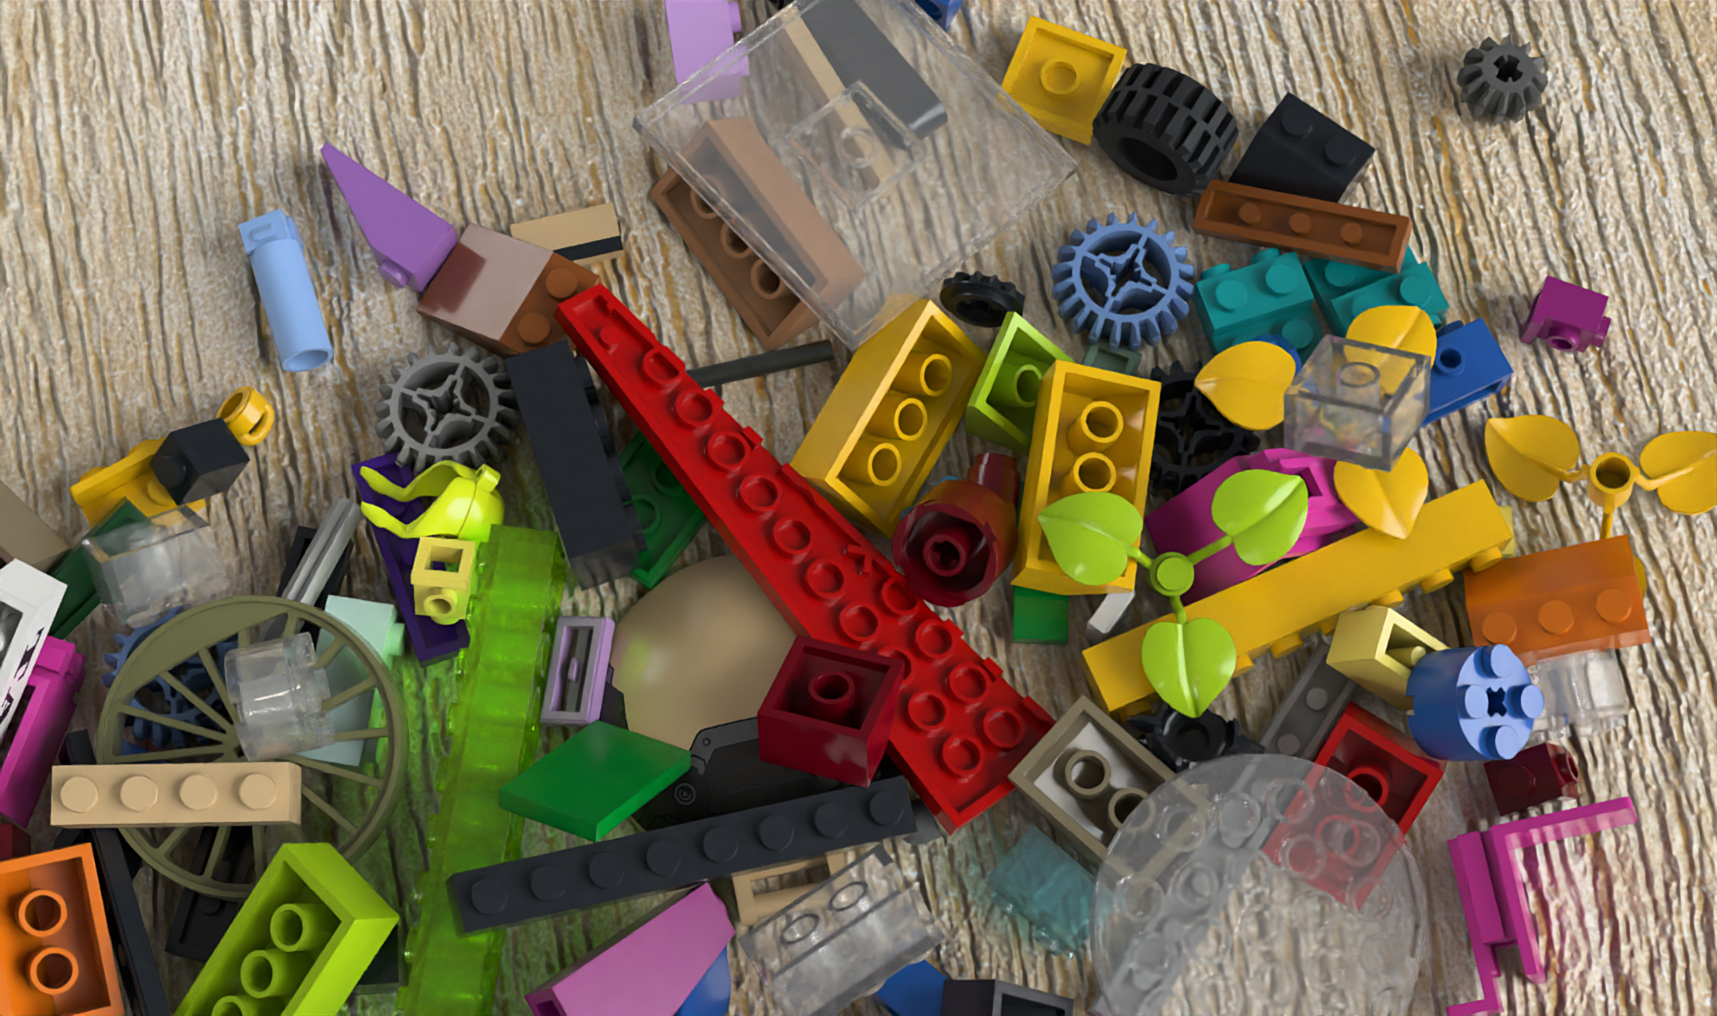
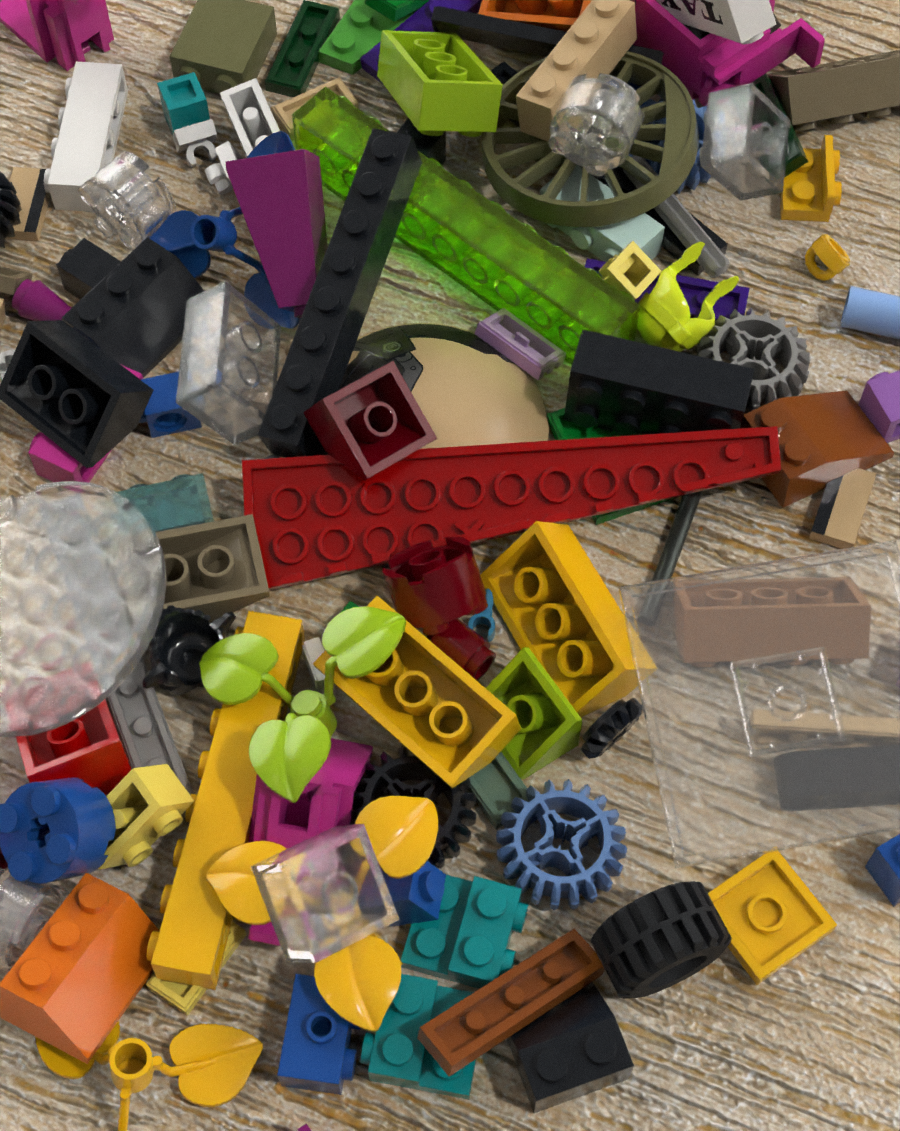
camera: 125 degrees right, 10 degrees down
(199, 461) = (806, 206): black brick -> none
(594, 780) = (428, 279): green tile -> none

